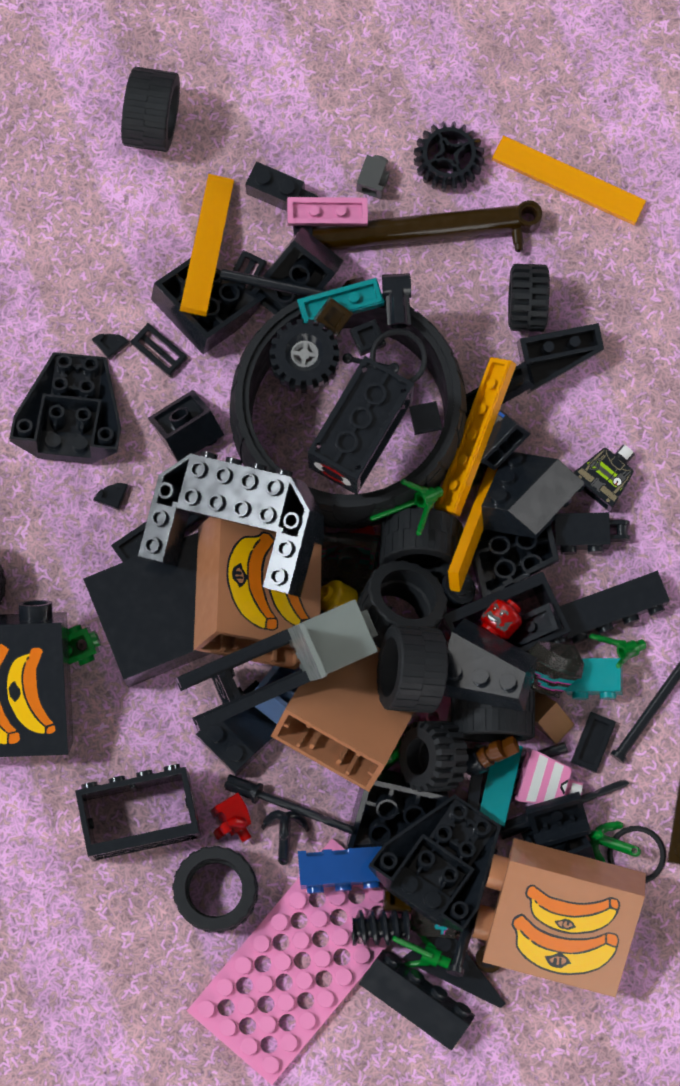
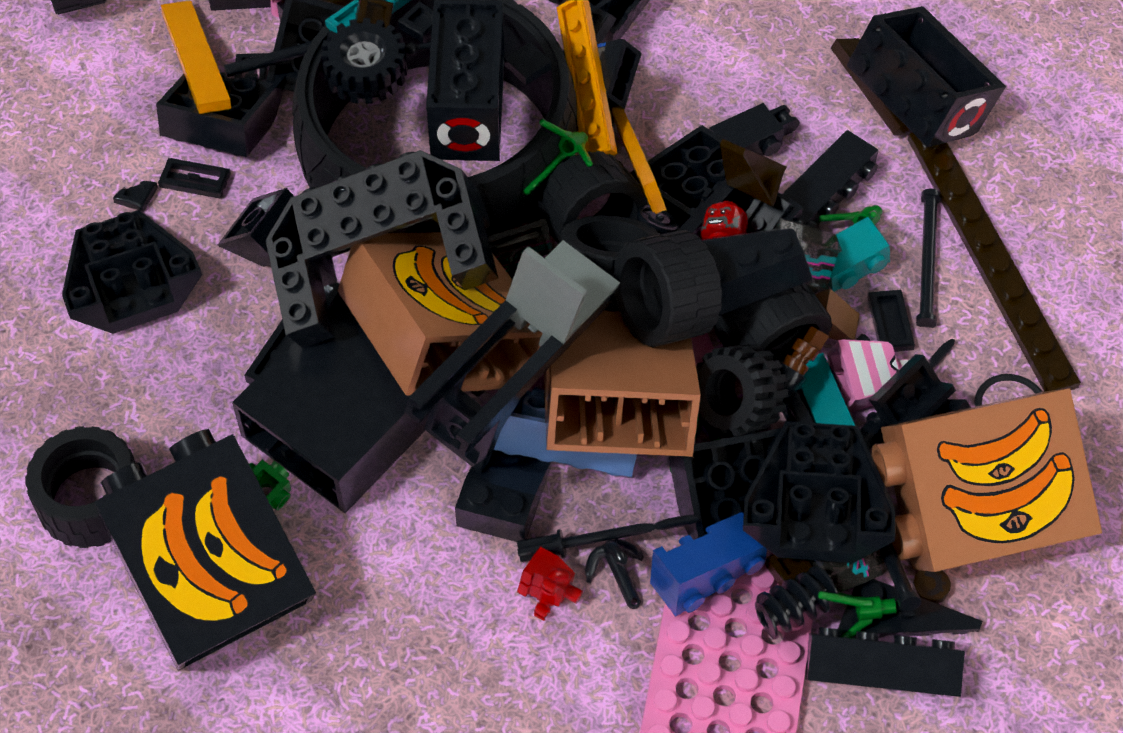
camera: 30 degrees left, 20 degrees down
(112, 495) = (217, 333): black tile -> none
(145, 840) = (459, 651): black hose -> none
(187, 870) = (576, 622): black tyre -> none
(528, 494) = (673, 116): black wedge -> none
(548, 588) = (751, 172): none -> dark brown slope
(598, 837) = (986, 397): green piece -> none
(607, 475) = (734, 80): torso -> none

